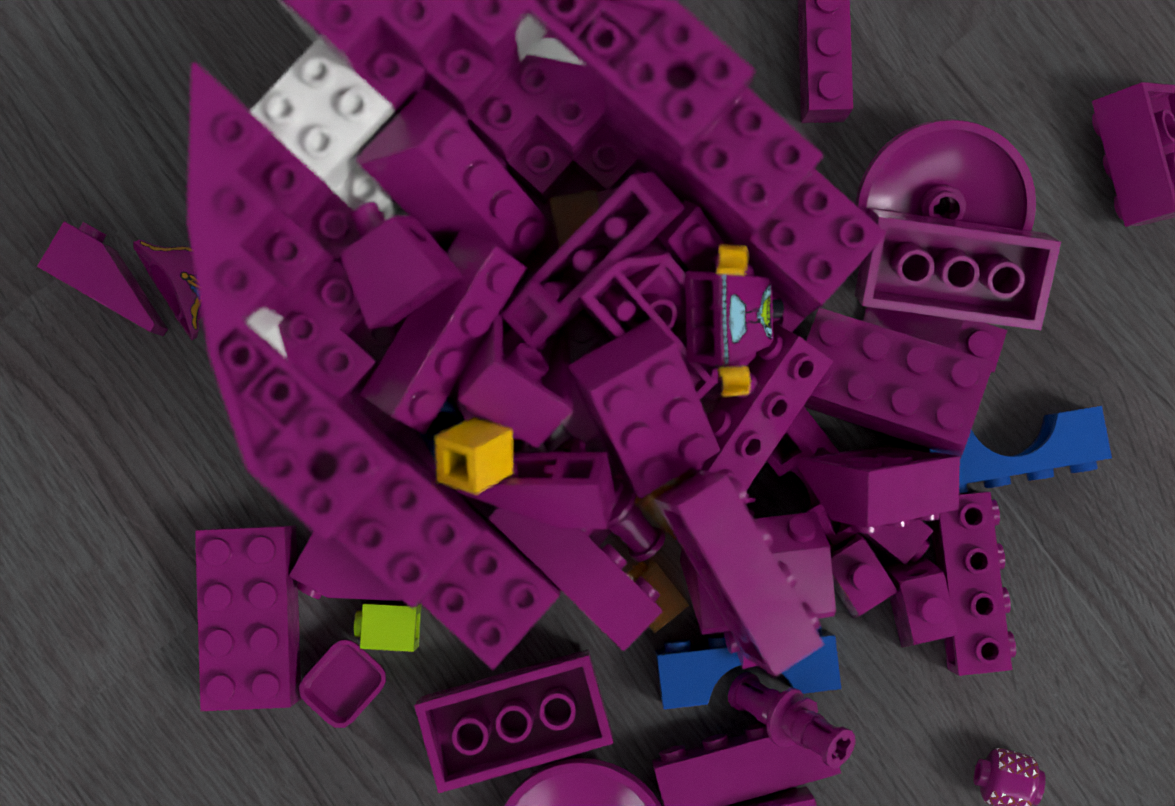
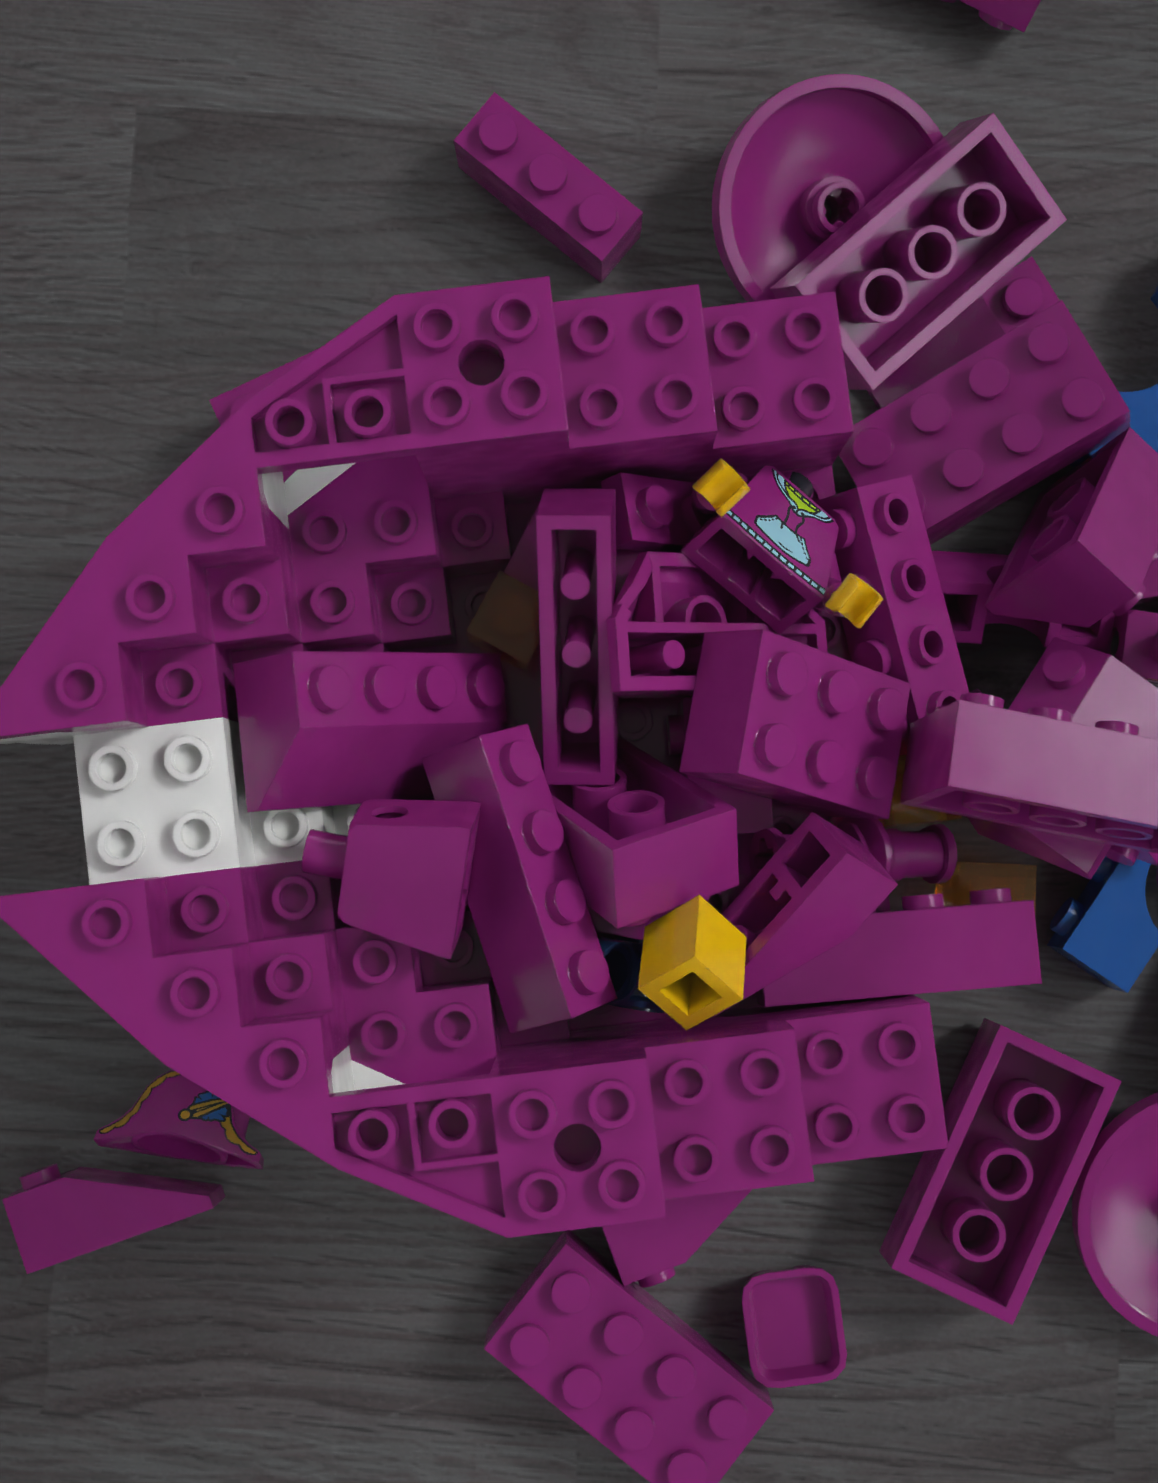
camera: 50 degrees left, 0 degrees up
(388, 626) = (772, 1225): lime brick -> none
(534, 314) = (586, 759): magenta tile -> none

